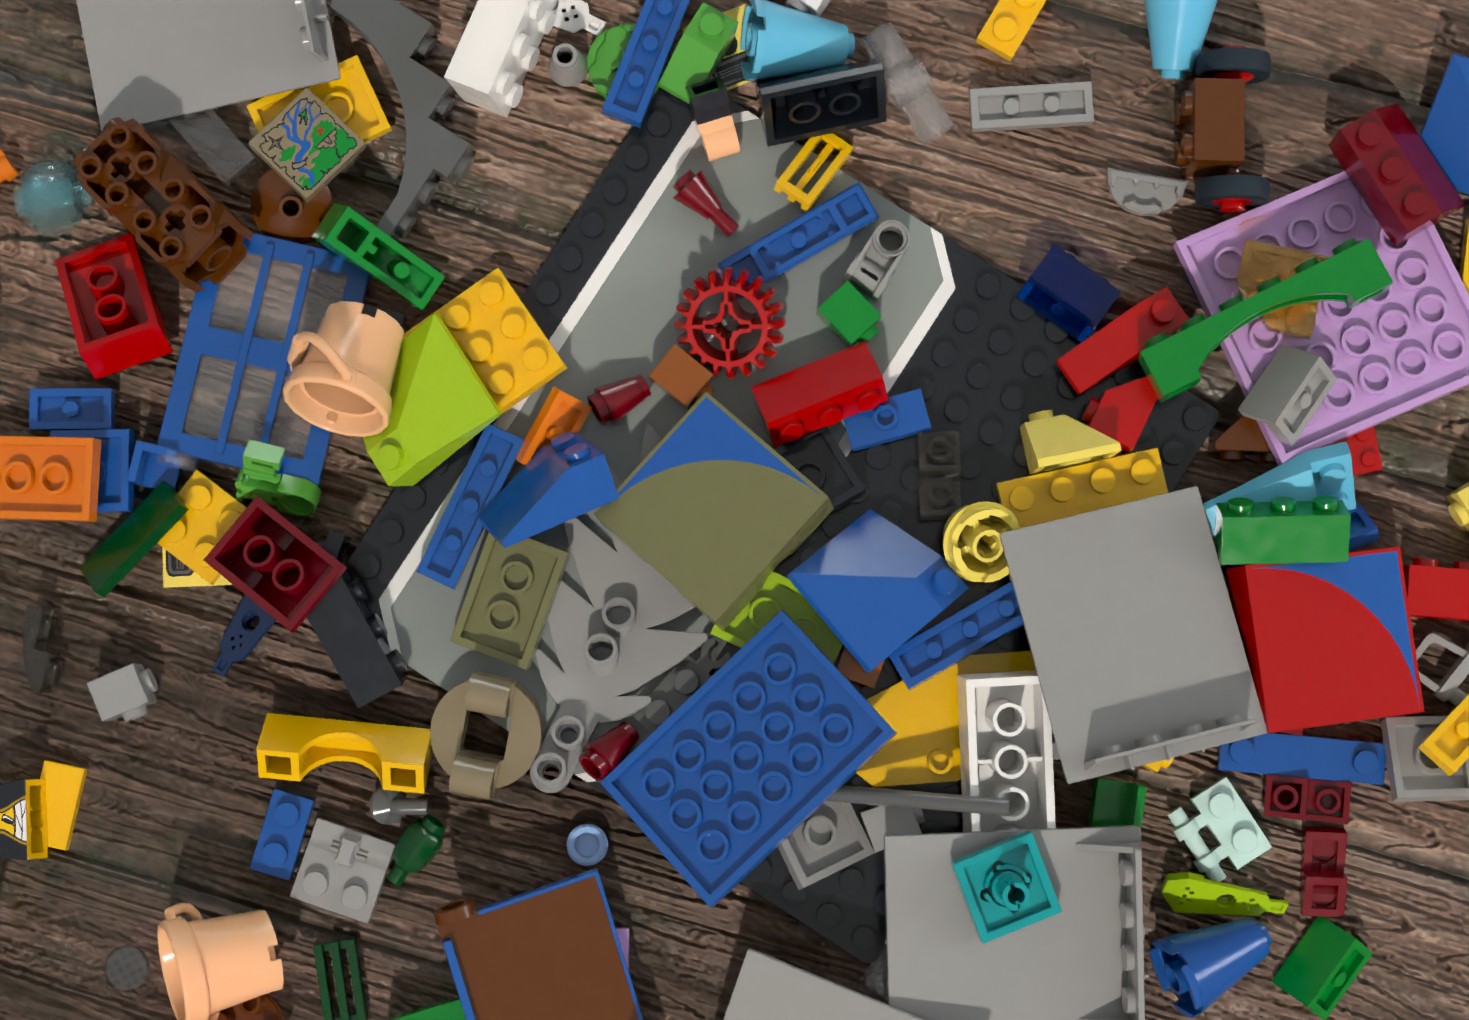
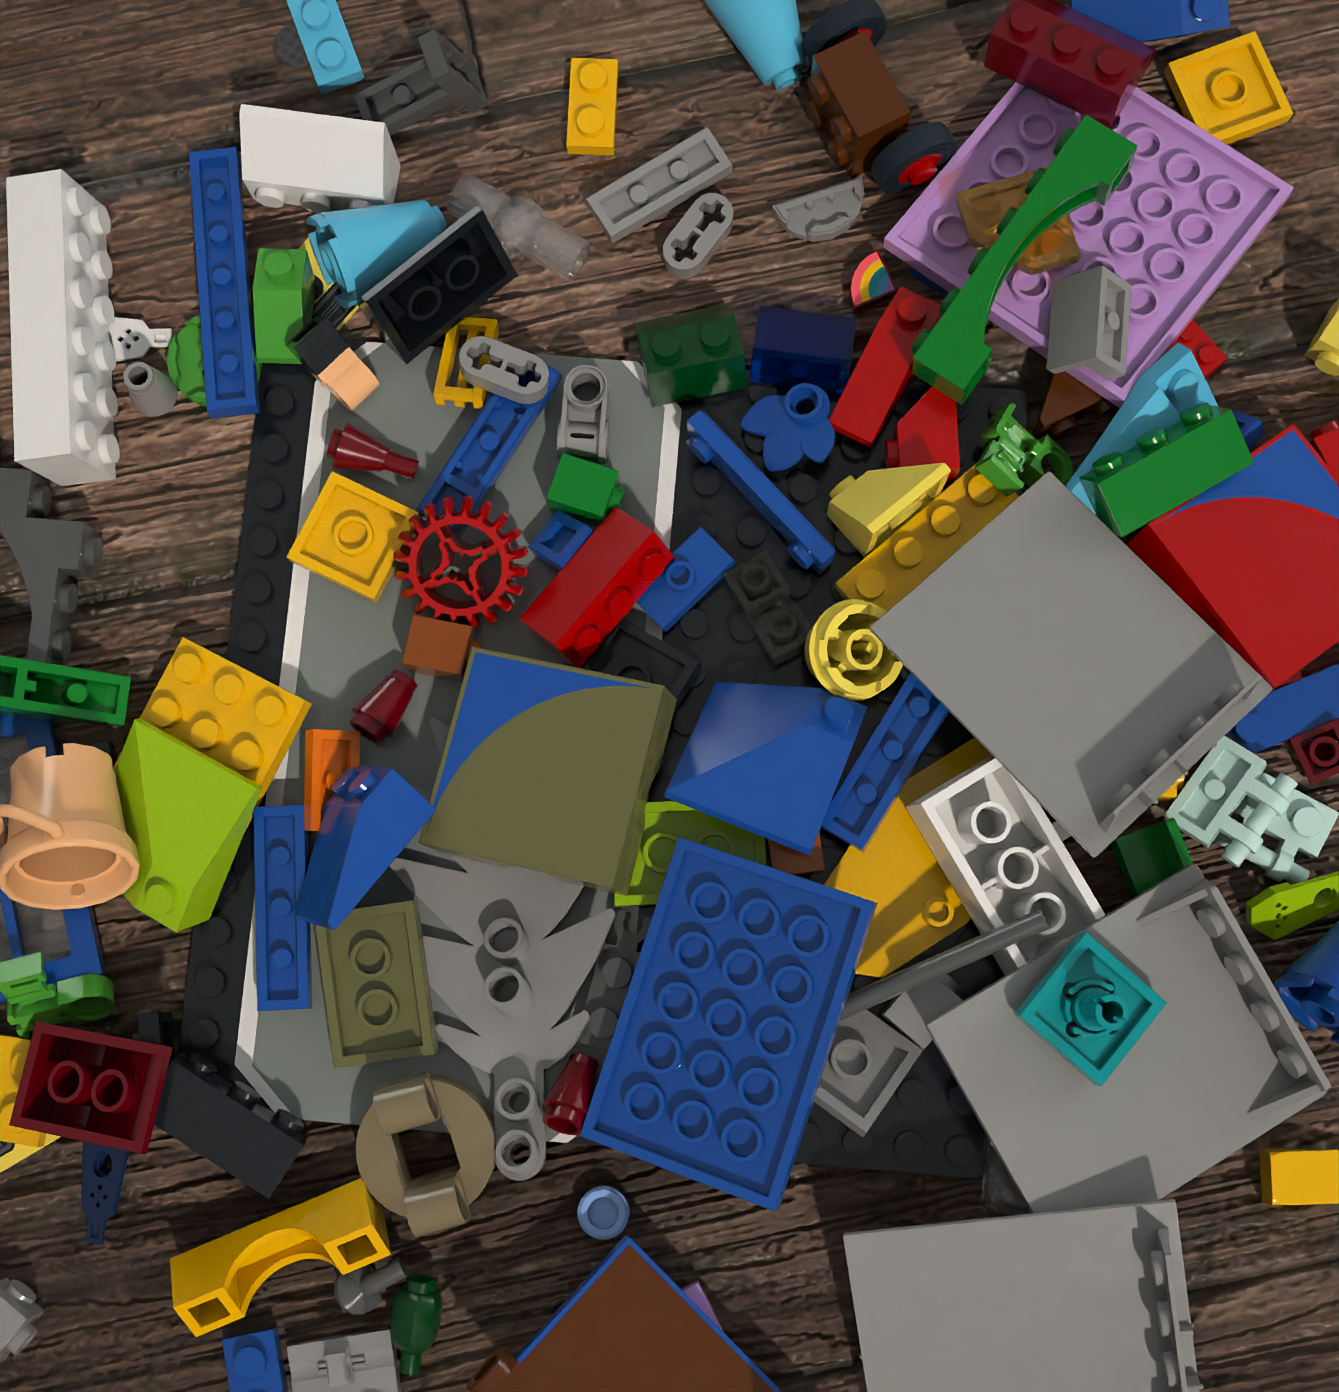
camera: 25 degrees left, 5 degrees down
(661, 258) = (352, 537): none -> yellow plate
(812, 342) = (559, 540): none -> blue plate
(844, 187) = (505, 367): none -> light grey beam
(984, 251) = (691, 355): none -> dark green slope
(991, 443) = (712, 444): none -> blue plate
(1024, 352) = (788, 432): none -> blue plate
(1035, 152) = (690, 229): none -> light grey beam
(1149, 267) = (870, 283): none -> tile
(1176, 456) = (1016, 452): none -> bright green piece
(1189, 783) = (1216, 792): none -> light aqua plate

